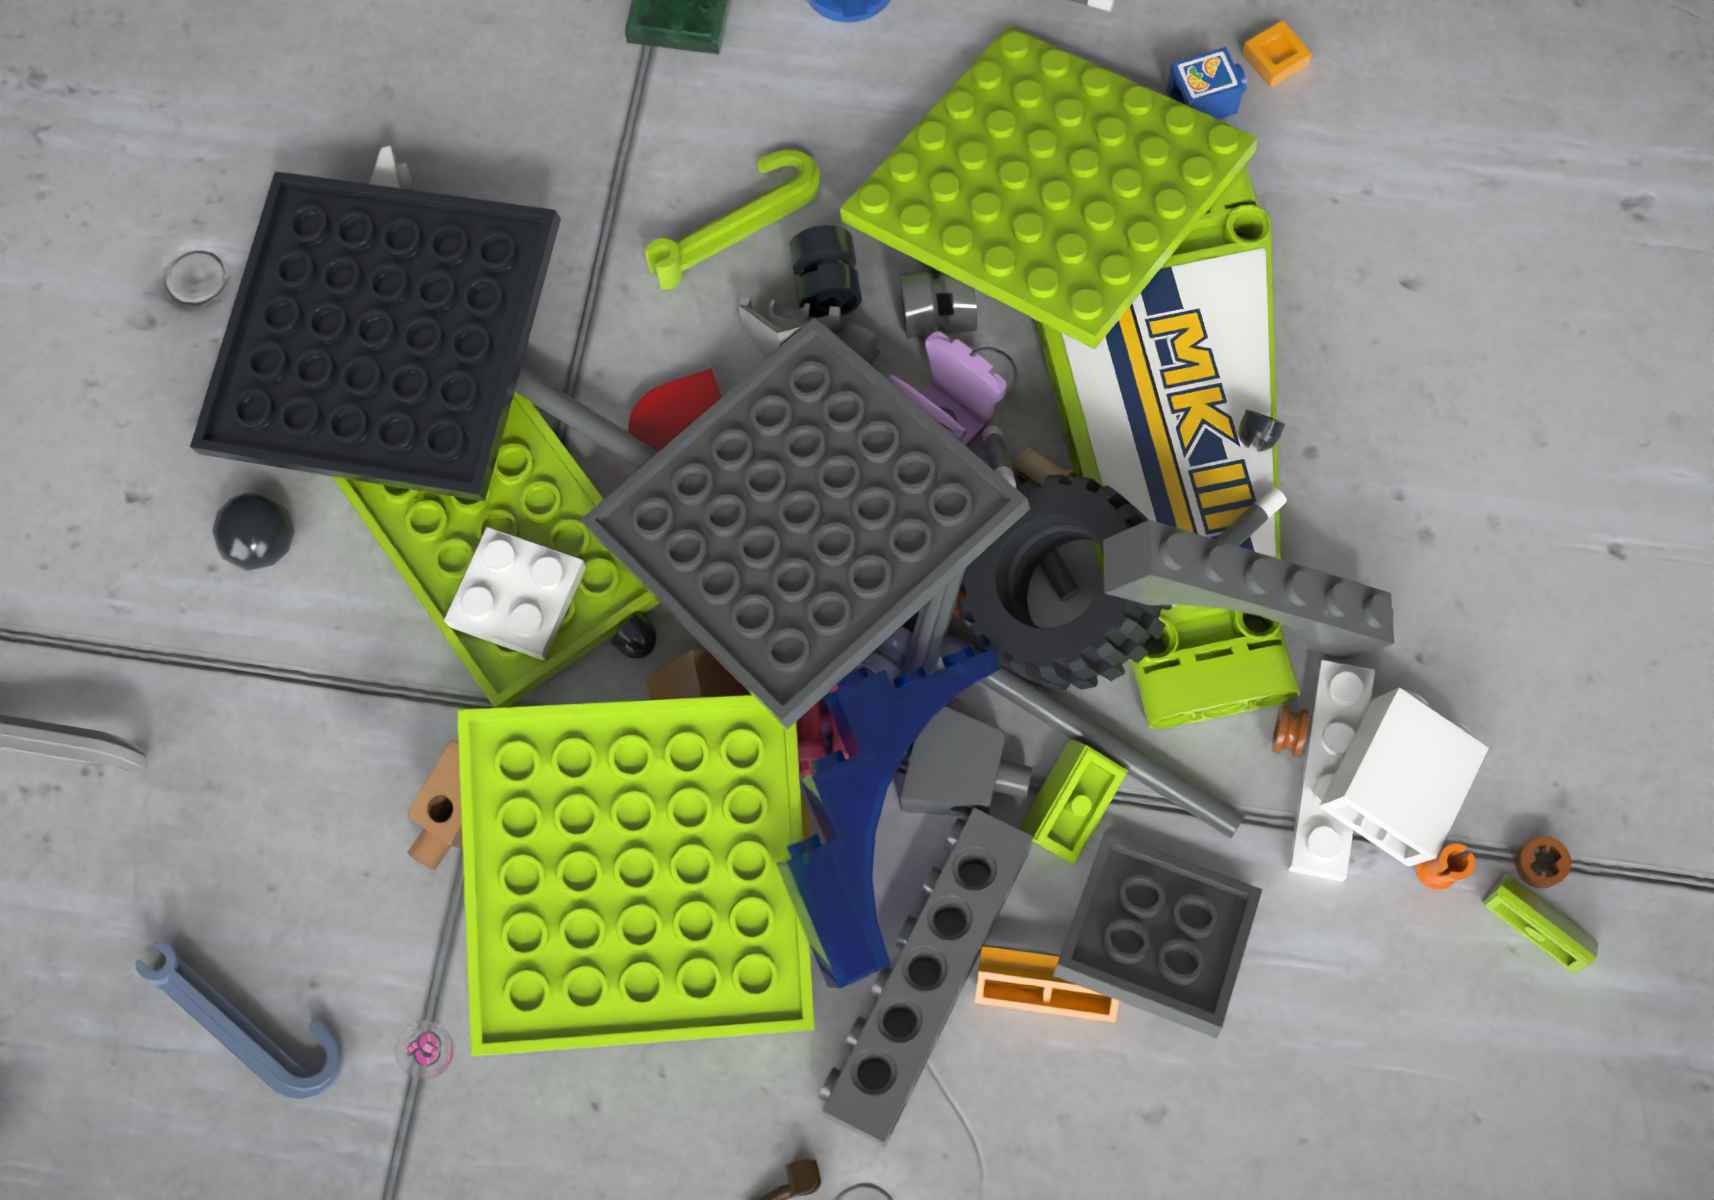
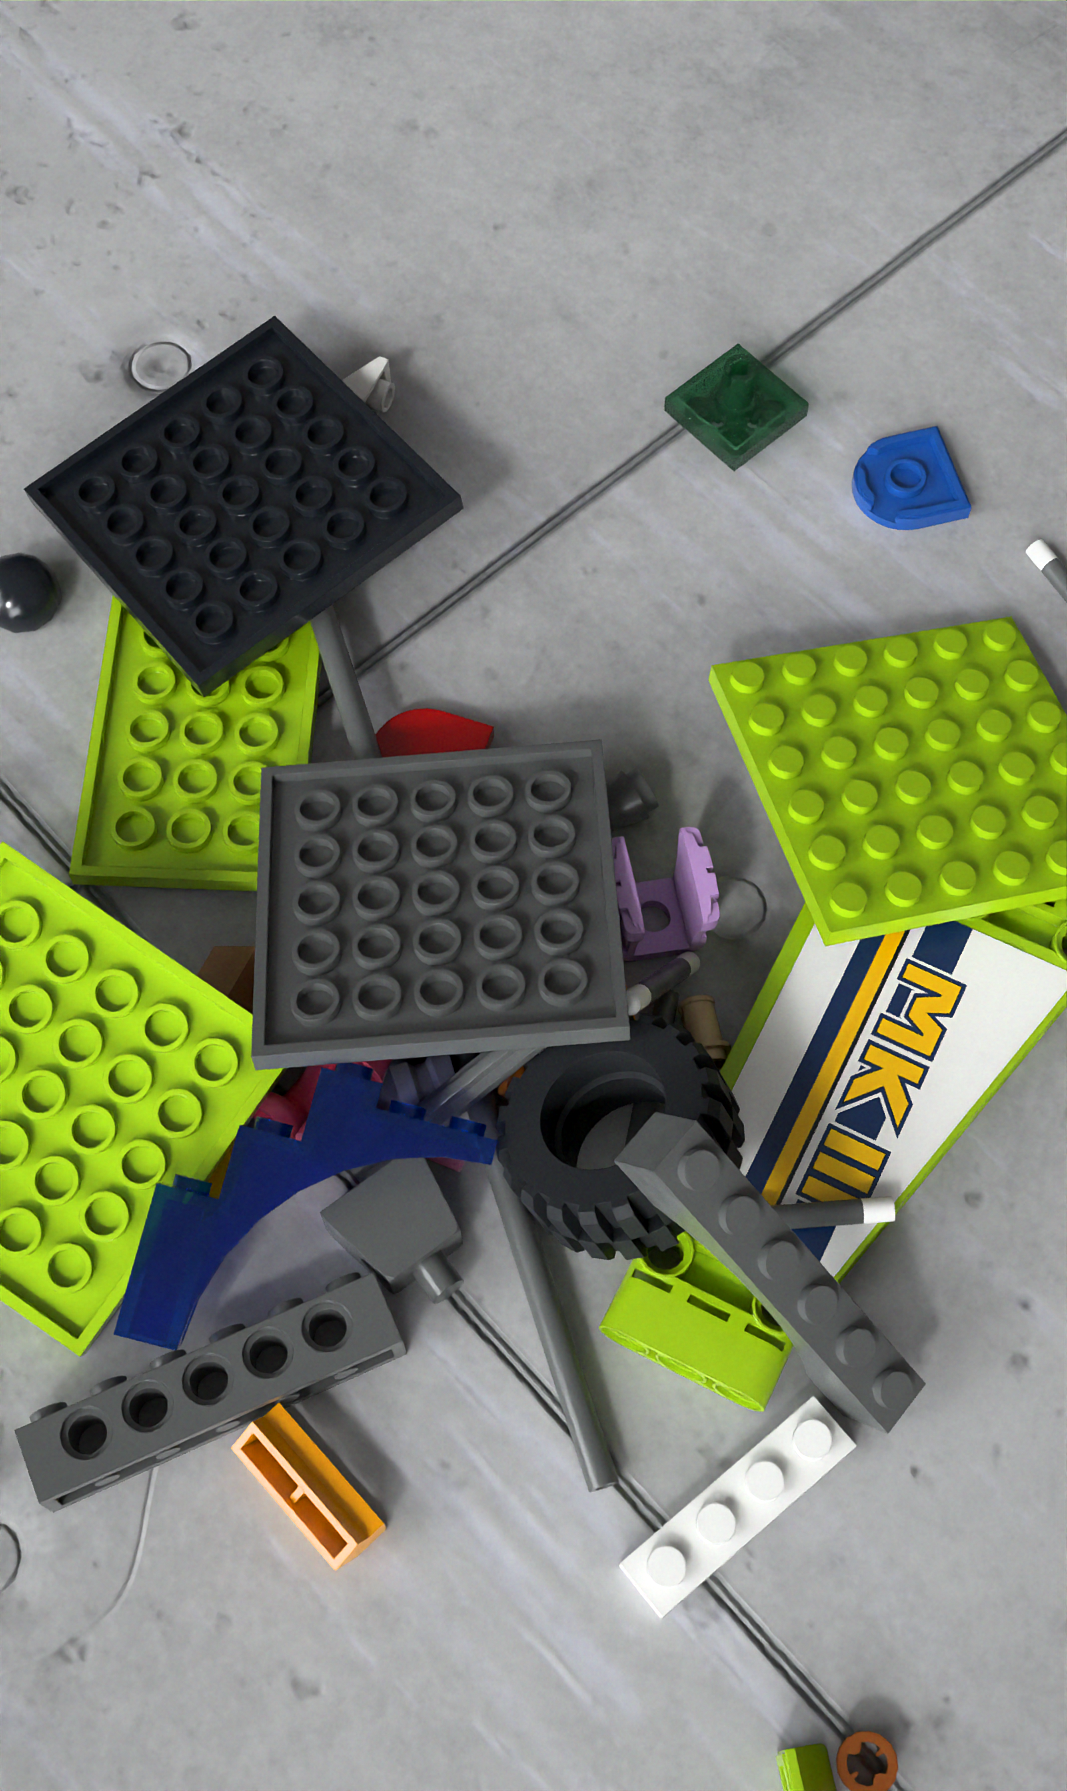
camera: 35 degrees right, 5 degrees down
(515, 593) = (165, 793): white plate -> none
(635, 637) = (234, 904): black hinge -> none
(672, 257) = (539, 613): lime piece -> none
(780, 323) = (583, 726): light grey slope -> none
(825, 270) = (659, 713): black wheel -> none
(920, 304) = (715, 804): dark grey wheel -> none
(1072, 800) = (473, 1341): lime slope -> none
(1159, 934) = (438, 1523): dark grey plate -> none
(1261, 426) = (926, 1133): black hinge -> none
(1290, 731) = (726, 1437): dark orange bush -> none
(1404, 776) = (793, 1567): white brick -> none
(1446, 868) = (746, 1673): orange pin -> none

